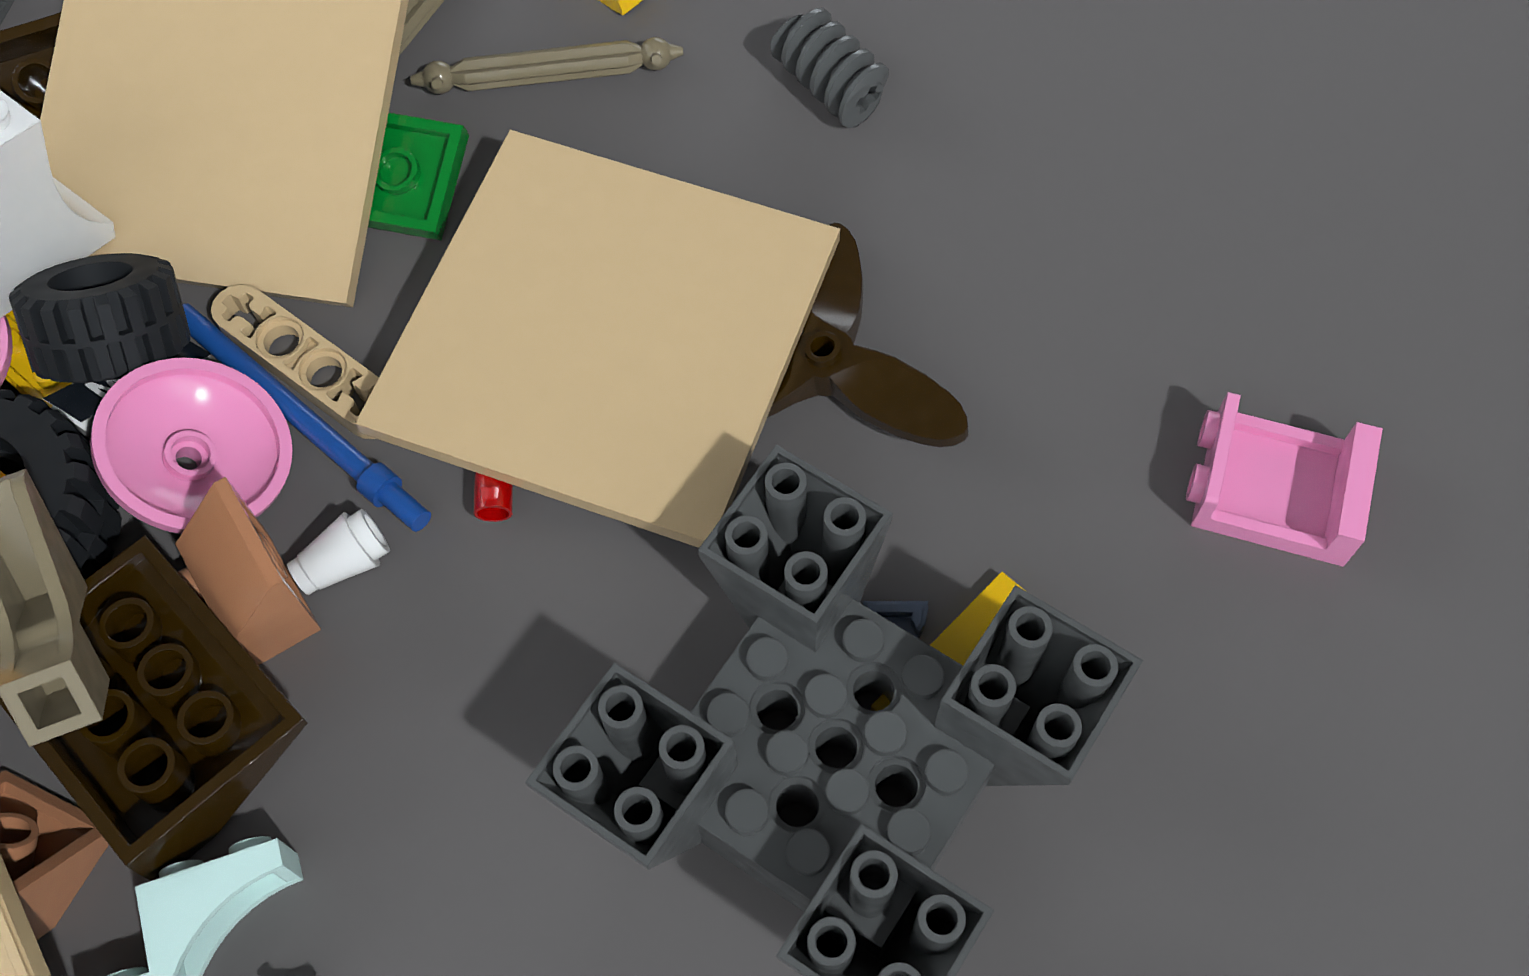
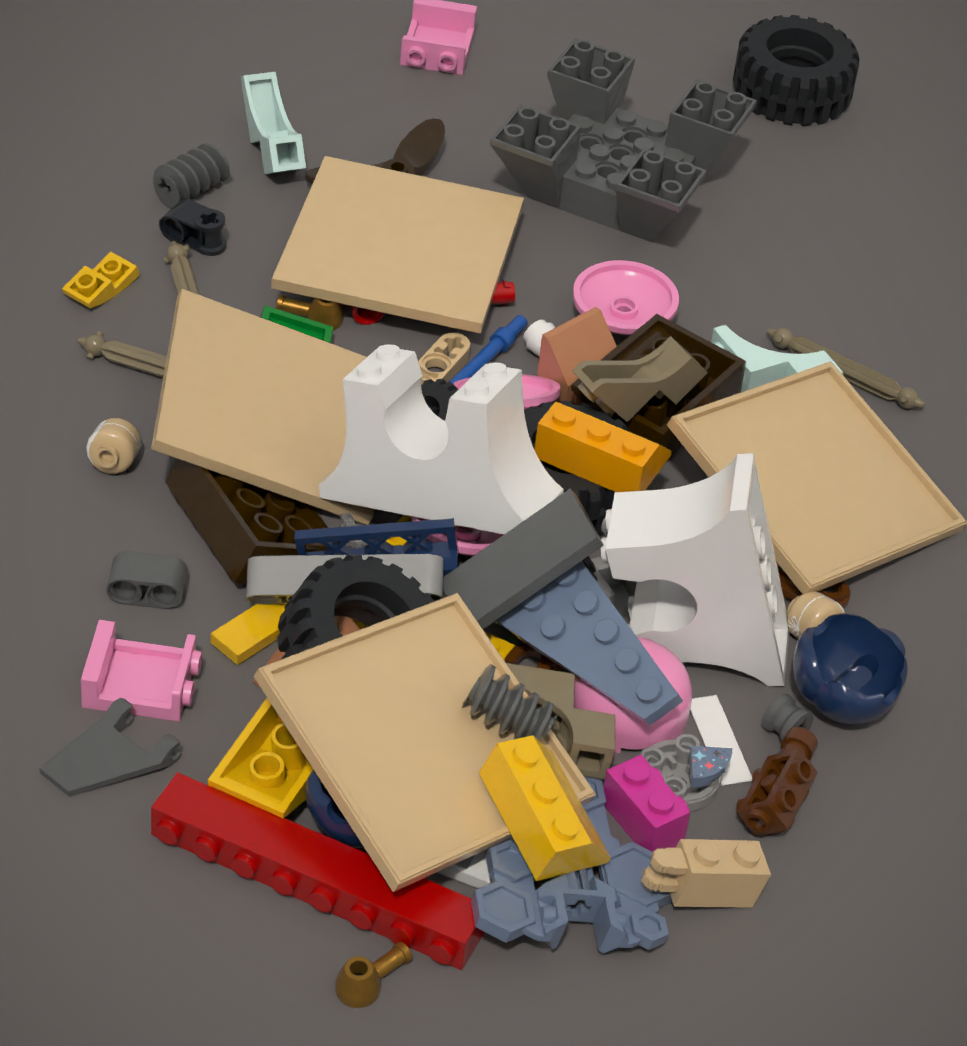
camera: 105 degrees left, 20 degrees down
(379, 662) = (625, 294): none -> bright pink dish
(708, 72) = (195, 226): none -> black piece
(965, 173) = (269, 124): none -> light aqua arch

